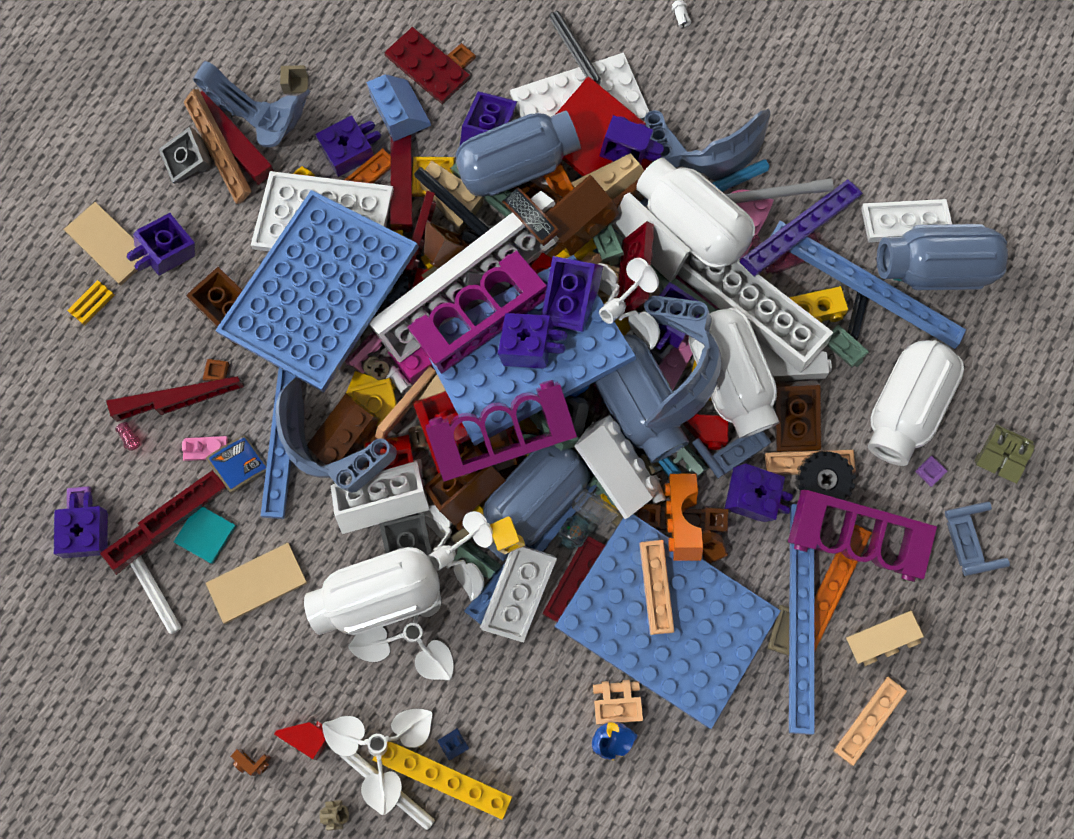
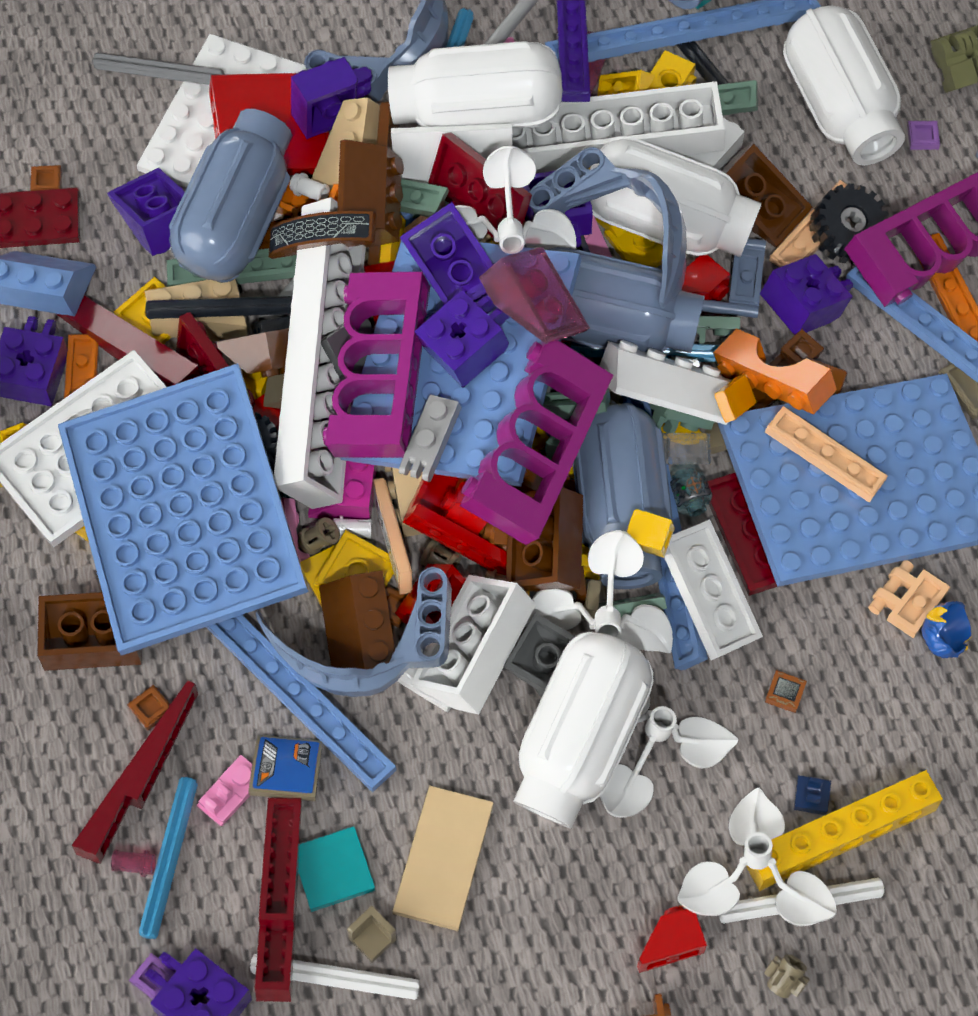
camera: 50 degrees left, 10 degrees down
(144, 450) = (168, 858): none -> dark azure axle
(184, 583) = (371, 934): none -> dark tan panel
(459, 375) = (430, 437): none -> light grey hinge
(502, 681) = (785, 691): none -> tile
(565, 178) = (302, 185): none -> white pin
(576, 357) = (534, 295): none -> clear pink slope
(644, 510) = (735, 398): none -> light orange tile
(795, 285) = (624, 82): none -> yellow slope

